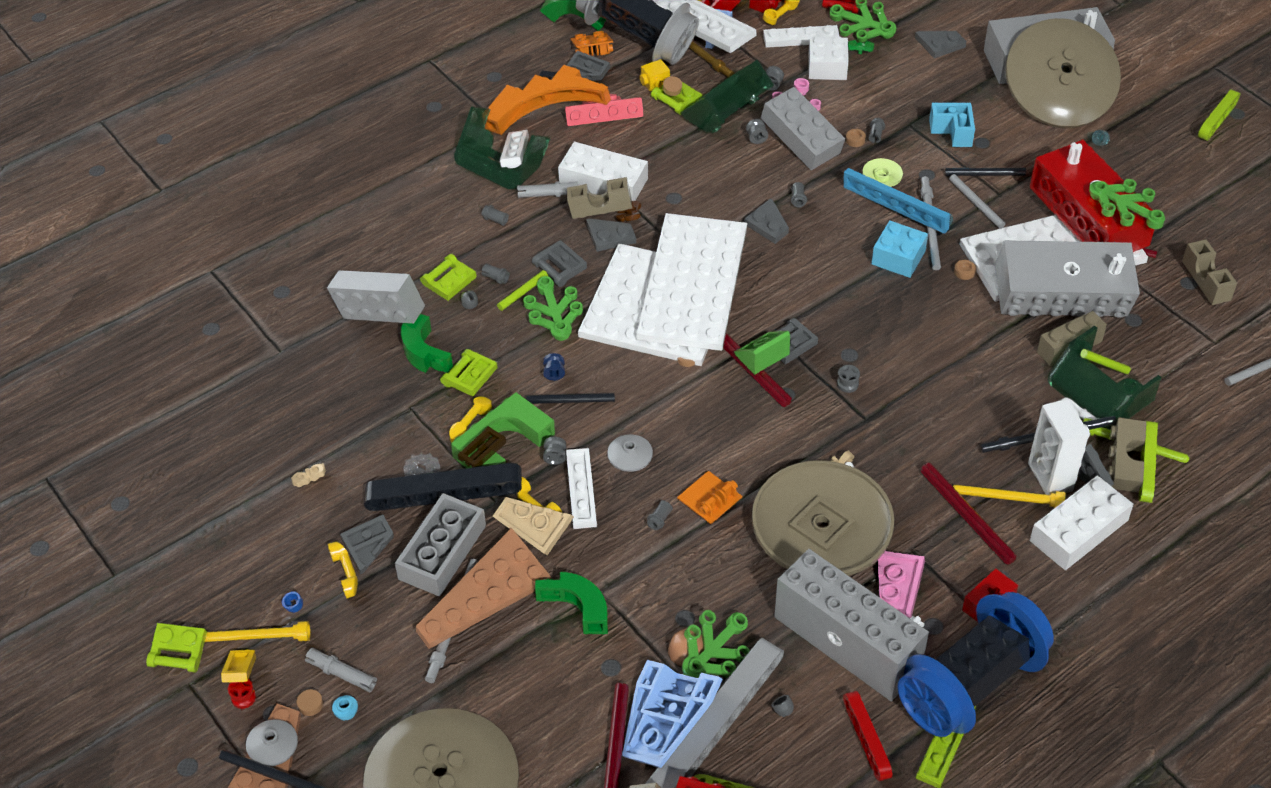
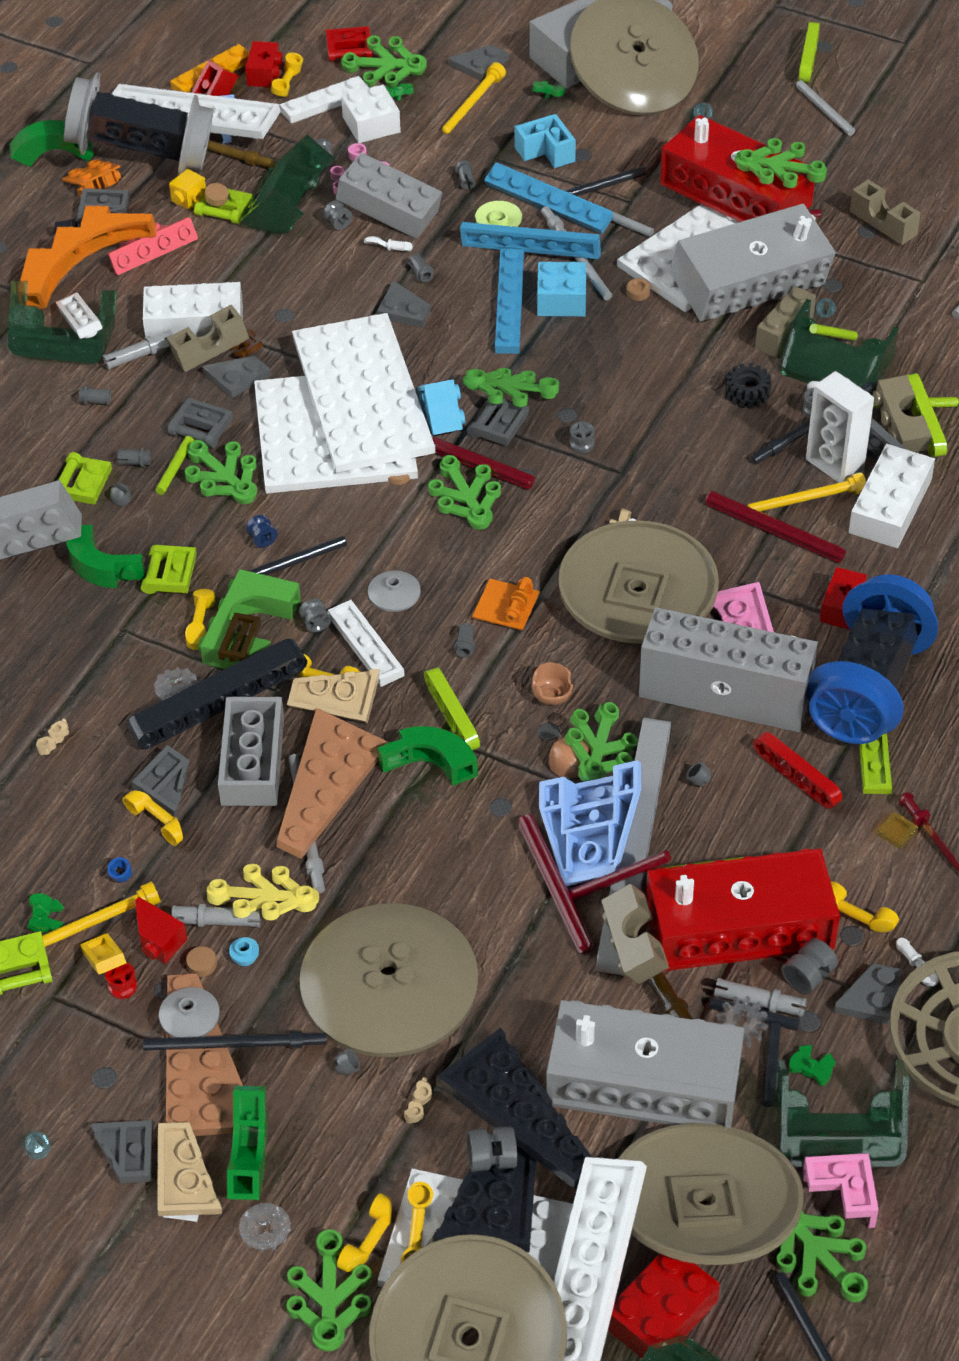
camera: 25 degrees left, 0 degrees up
(221, 607) = (41, 908): none -> green piece
(289, 665) = (158, 931): none -> red slope
(410, 681) = (264, 896): none -> light yellow plant
(615, 570) = (451, 707): none -> lime beam
(661, 769) = (620, 875): none -> dark red bar
(705, 579) = (551, 683): none -> nougat hair
(728, 413) = (477, 515): none -> bright green plant
(746, 313) = (441, 406): none -> medium azure brick
(765, 350) = (482, 436): bright green slope -> none
(786, 168) = (390, 245): none -> white piece
(790, 303) = (502, 379): none -> bright green plant
(854, 245) = (509, 301): none -> dark azure plate
(855, 137) = (449, 189): medium nougat tile -> none
(937, 173) = (542, 194): none -> dark azure plate
(945, 56) = (494, 74): none -> yellow piece
(982, 80) = (548, 89): none -> green piece
(1013, 373) = (748, 395): none -> black tyre
(1111, 334) = (831, 308): none -> clear light blue hinge
(1209, 166) = (826, 108): none -> light grey bar

